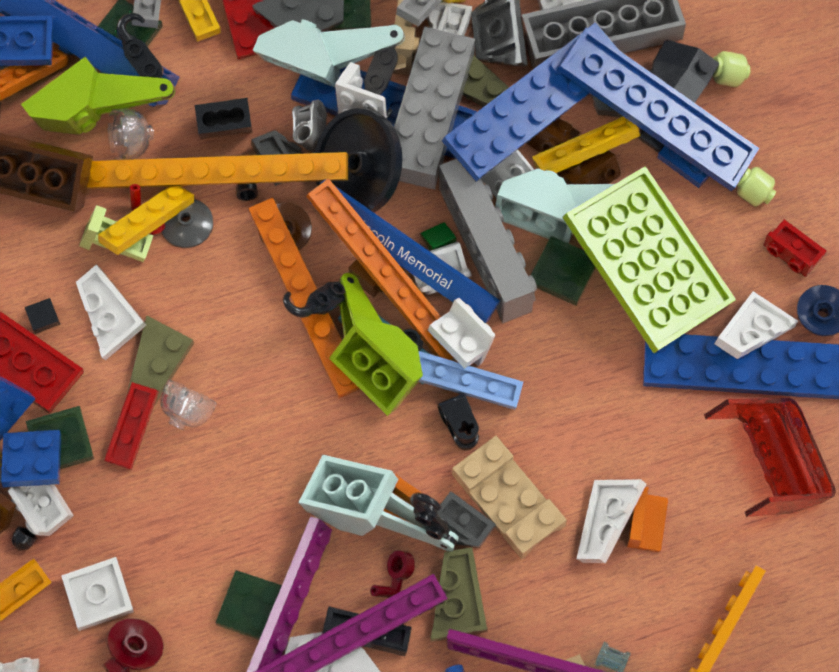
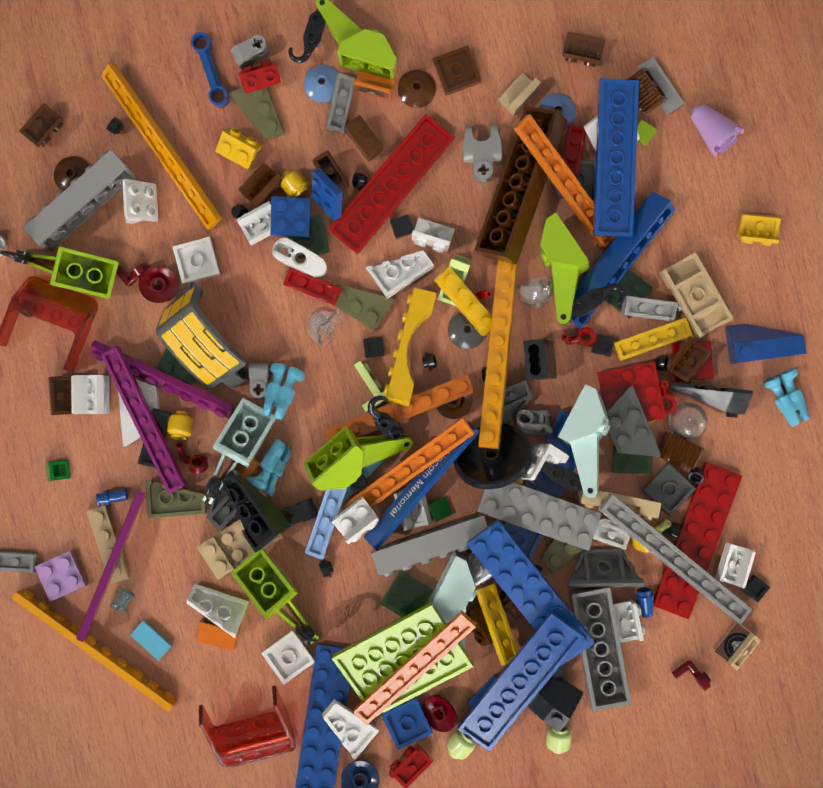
camera: 90 degrees right, 20 degrees up
(54, 271) = (432, 235): none -> white bracket
(98, 420) = (312, 265): none -> white piece
(193, 81) = (580, 338): none -> red plate
(200, 54) = (603, 345): none -> black tile
(213, 567) = (198, 343): none -> panel
(216, 340) = (373, 347): none -> black tile
(232, 264) = (429, 361): none -> black plate
(263, 287) = (401, 383): none -> yellow arch
(267, 489) = (259, 376): none -> light grey piece
(273, 333) = (373, 385): none -> yellowish green bracket
(291, 455) = (281, 396): none -> medium azure piece
(346, 594) = (180, 425): none -> yellow head
(395, 457) = (273, 467): none -> medium azure piece
(466, 462) = (258, 515): none -> black wedge
(536, 378) = (326, 568): none -> black plate
(573, 439) = (271, 590): none -> lime slope
(656, 237) = (414, 667): none -> plate
(666, 419) = (288, 657): none -> white plate
(667, 614) = (151, 640): none -> medium azure tile
(728, 216) = (439, 713): none -> dark red dish
(738, 257) = (407, 723): none -> blue plate

